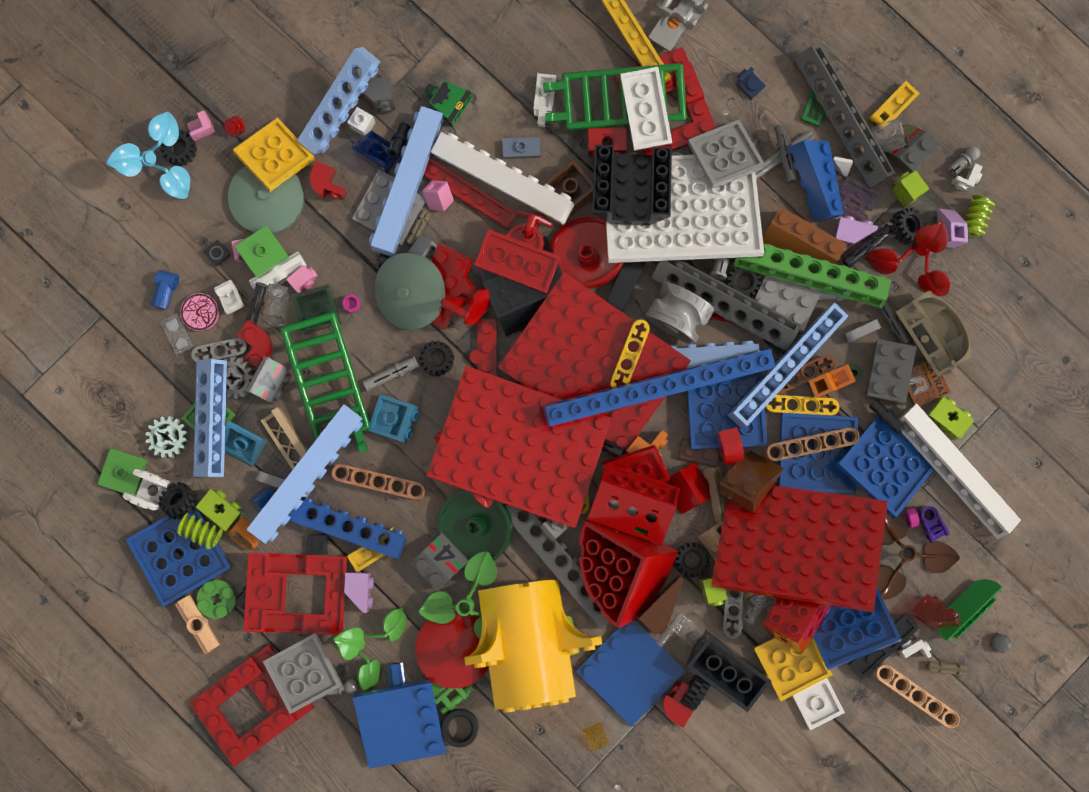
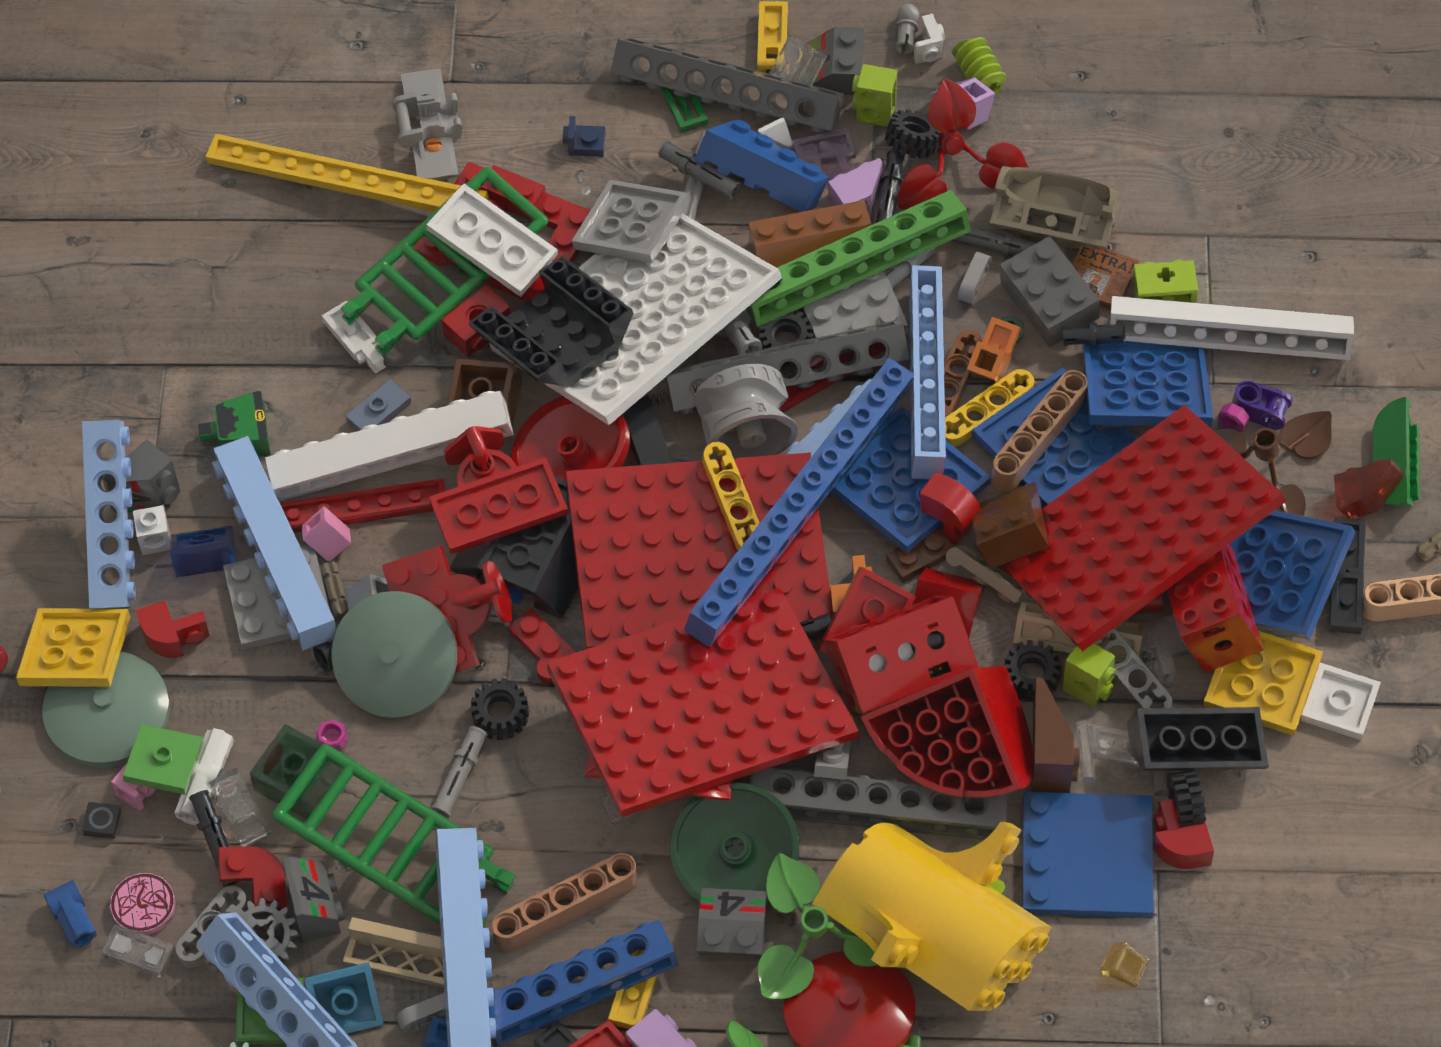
camera: 40 degrees left, 25 degrees down
(229, 297) = (165, 852): white bracket -> none
(302, 279) = (243, 754): bright pink brick -> none
(394, 418) = (513, 815): dark azure plate -> none
(398, 140) = (219, 511): black pin -> none
(910, 647) = (1386, 538): white bracket -> none

